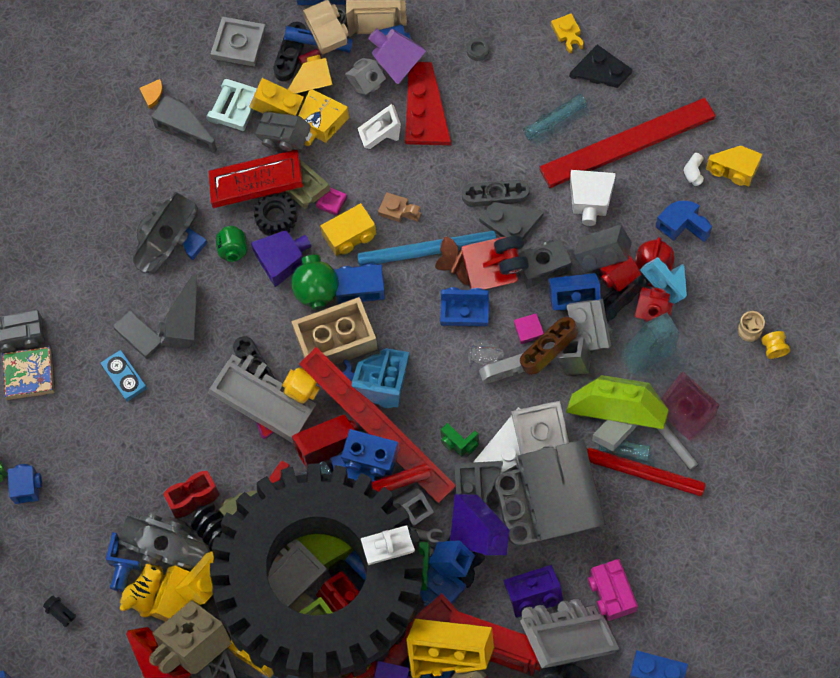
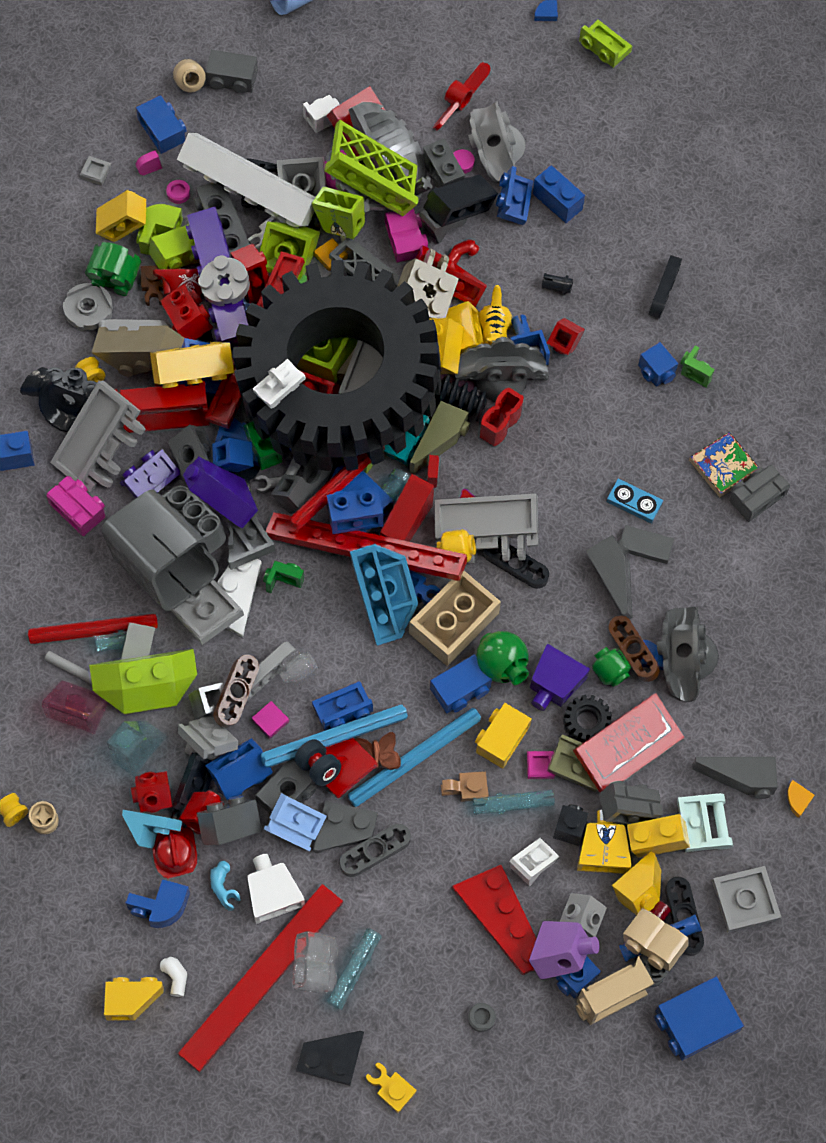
camera: 145 degrees right, 0 degrees up
(87, 545) = (565, 336): none -> red brick
(211, 234) = (634, 659): none -> reddish brown beam
(336, 141) = (570, 824): none -> black brick
(364, 179) = (502, 803): none -> clear light blue pin
(484, 586) = (188, 444): none -> dark grey brick
(486, 282) = (337, 734): none -> dark azure axle
(550, 229) = (295, 822): none -> light blue plate
(584, 127) = (315, 962): none -> clear brick
(629, 208) = (217, 878): none -> medium azure piece

